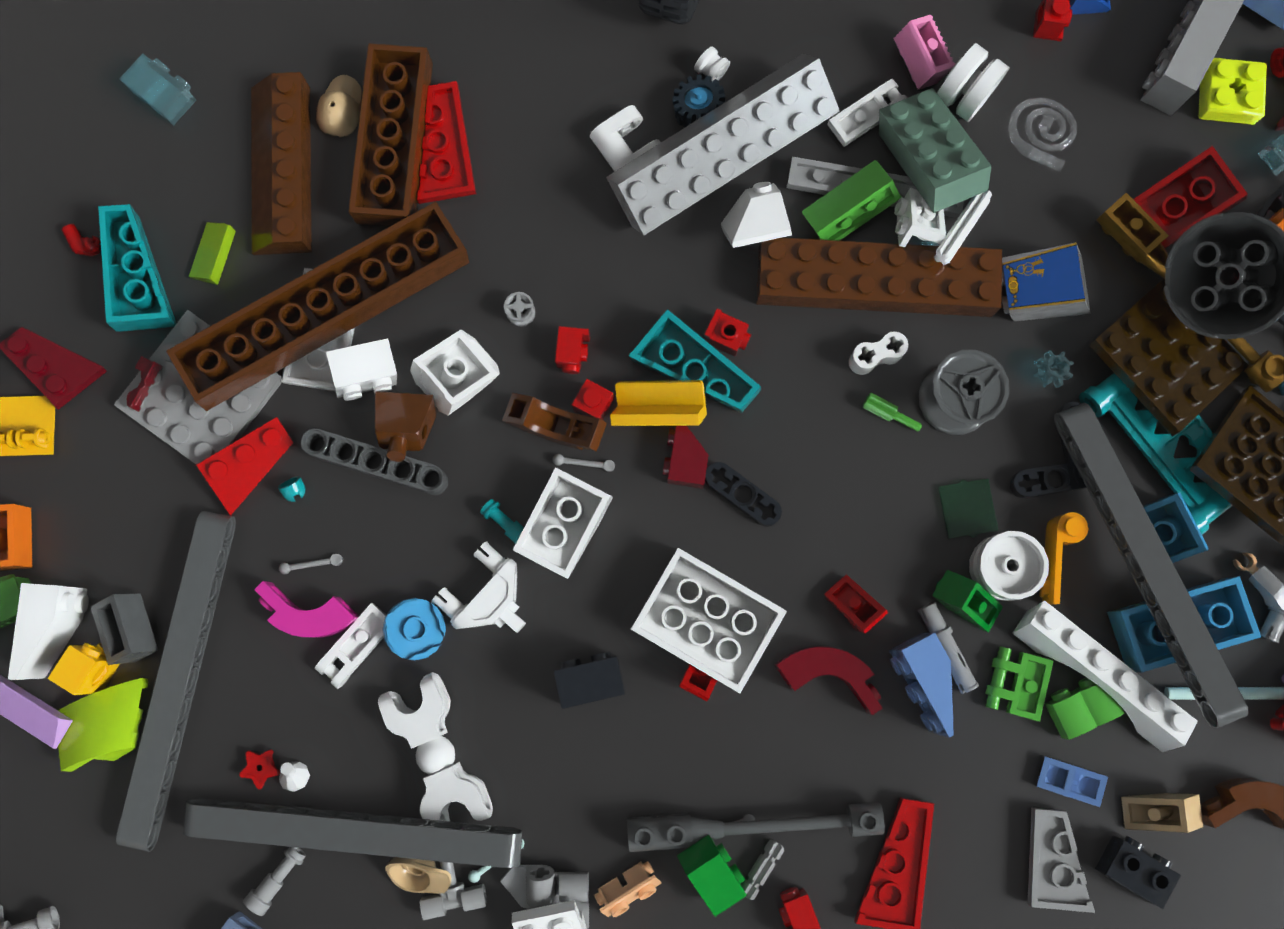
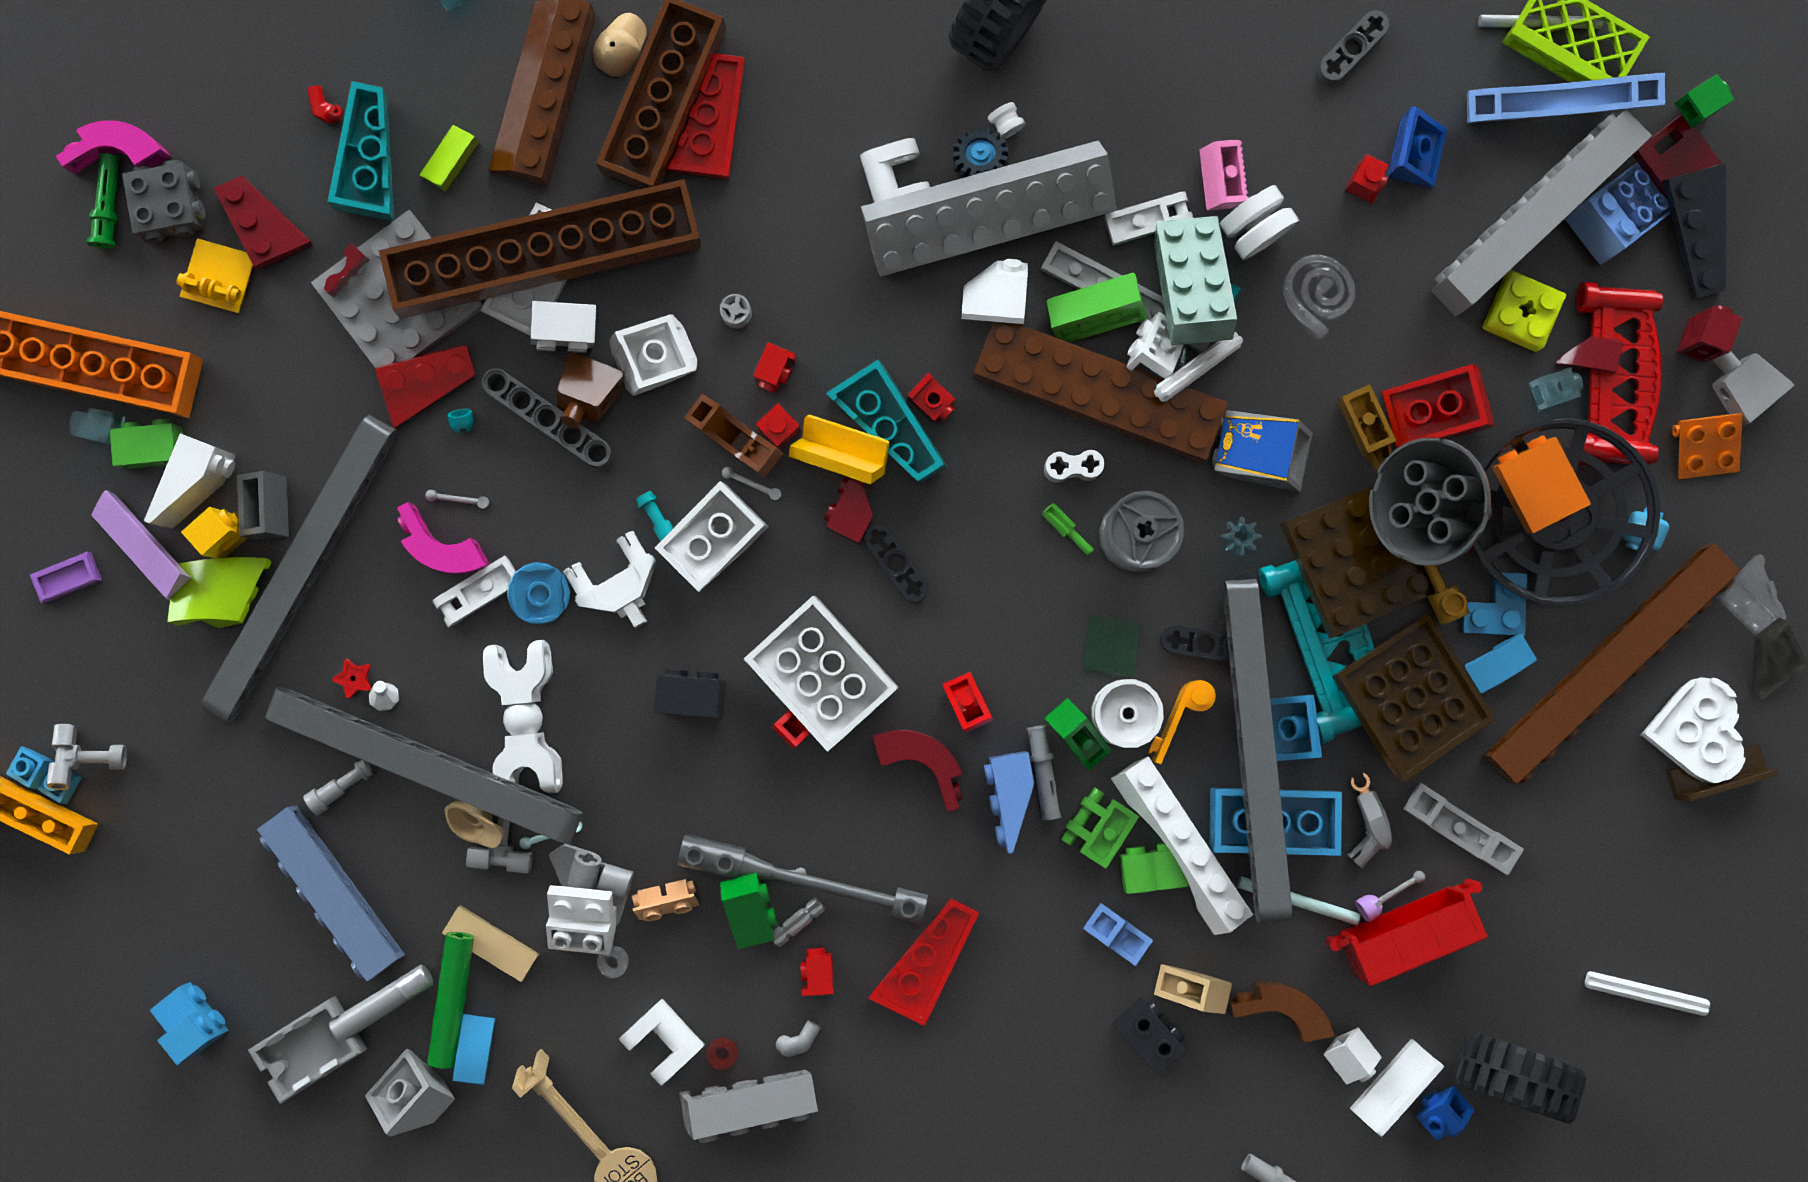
camera: 15 degrees right, 5 degrees up
(1054, 865) = (1073, 1008): light grey wing -> none

